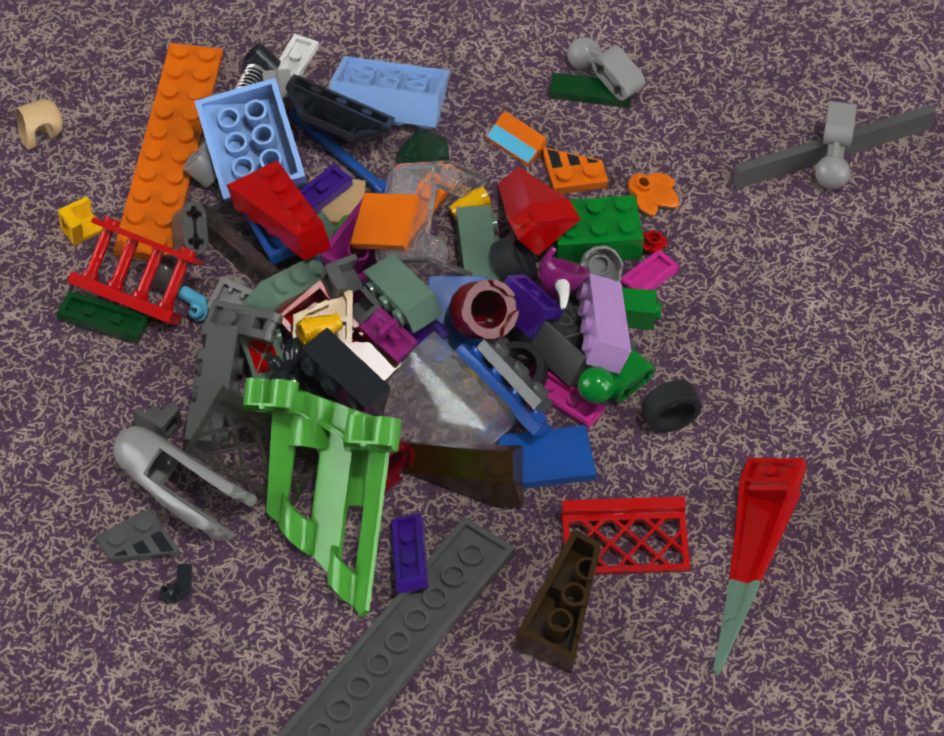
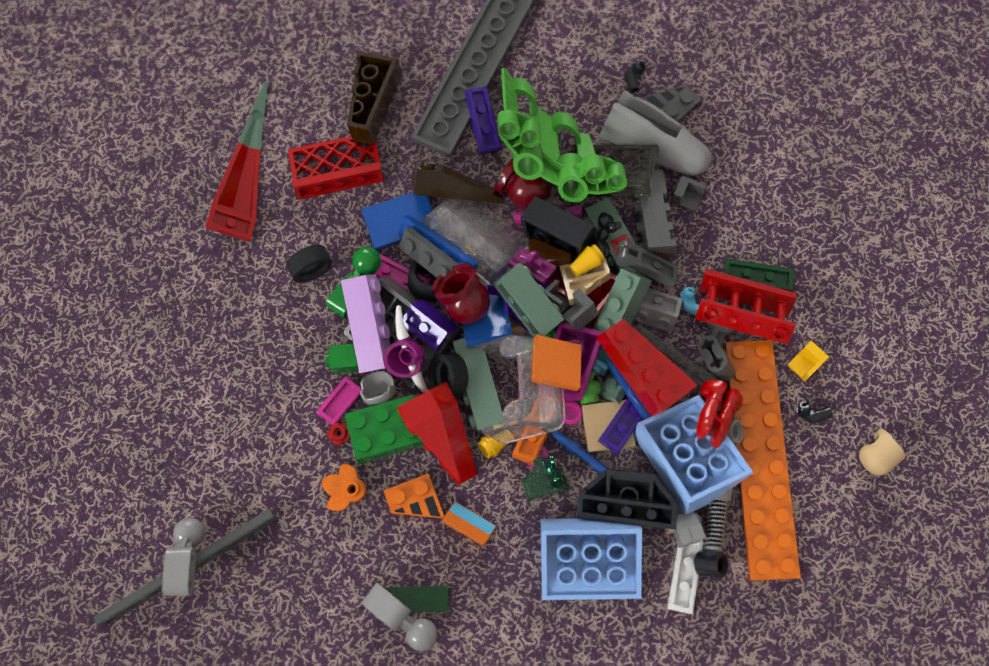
camera: 175 degrees right, 20 degrees up
(96, 176) = (811, 415): none -> black arm
(211, 165) = (708, 420): none -> red piece

